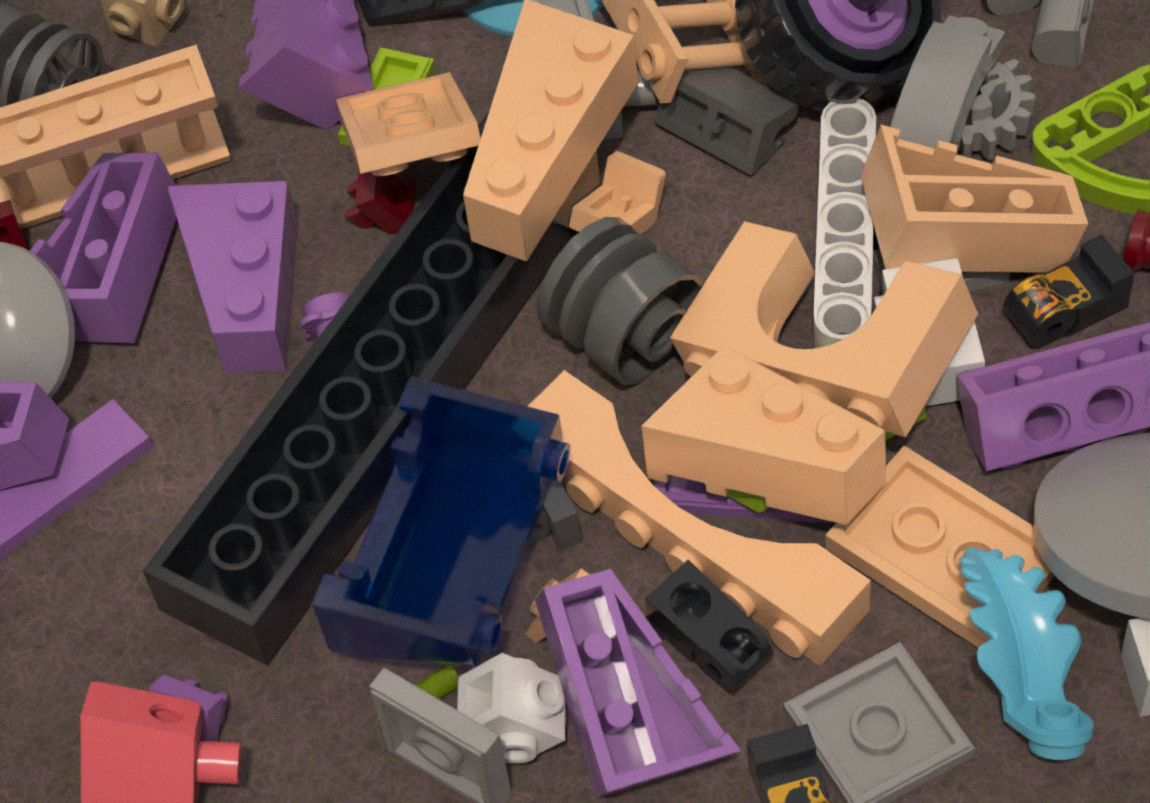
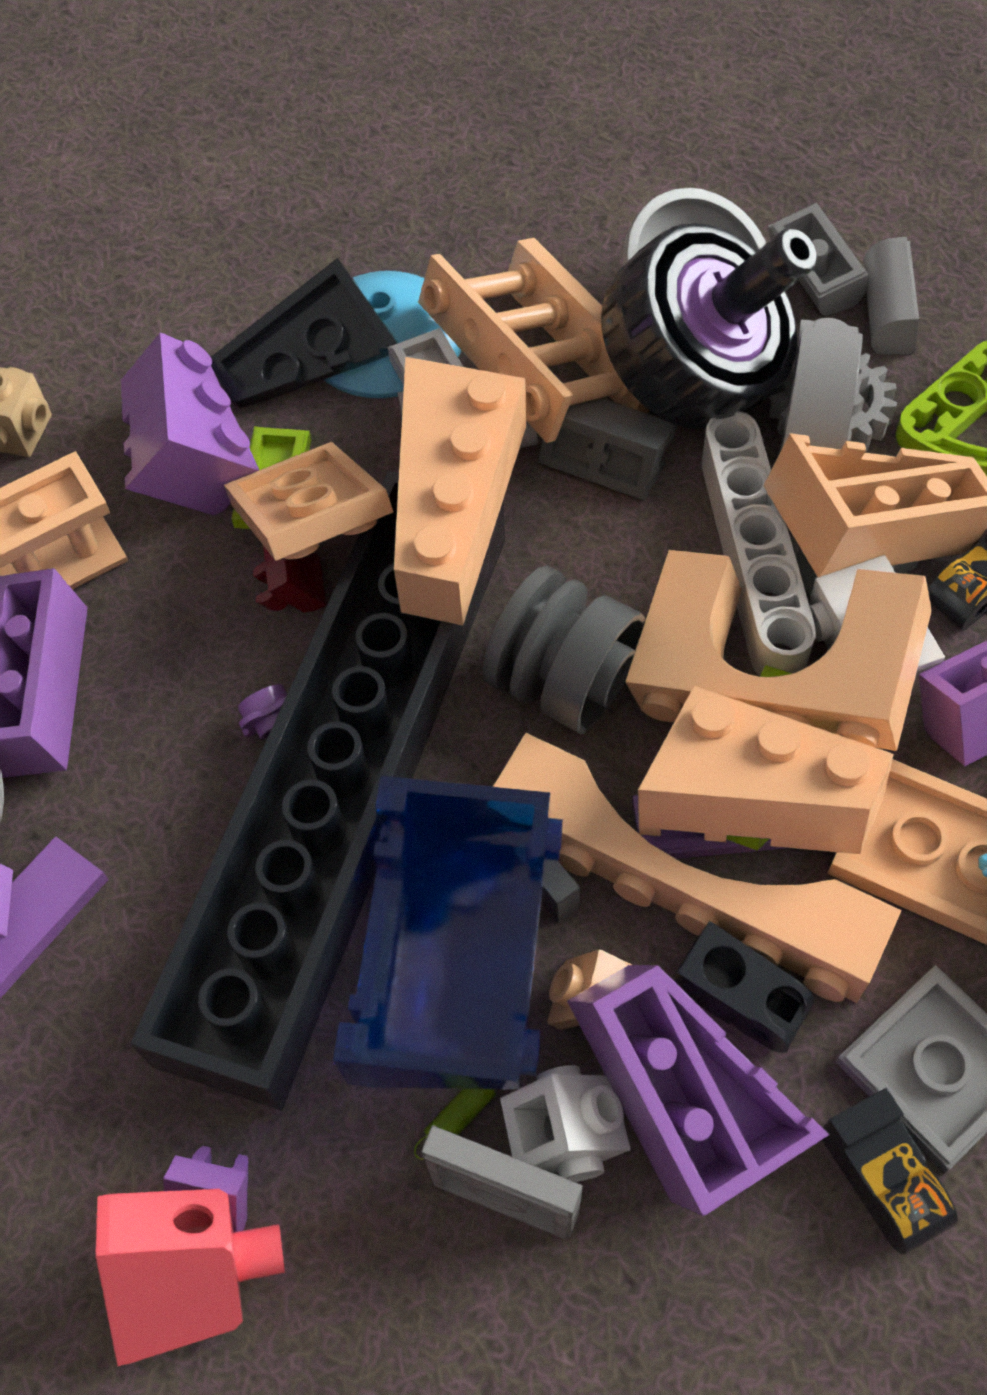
camera: 15 degrees left, 5 degrees up
(244, 266) = (165, 670): medium lavender wedge -> none
(628, 191) = (532, 540): light nougat bracket -> none

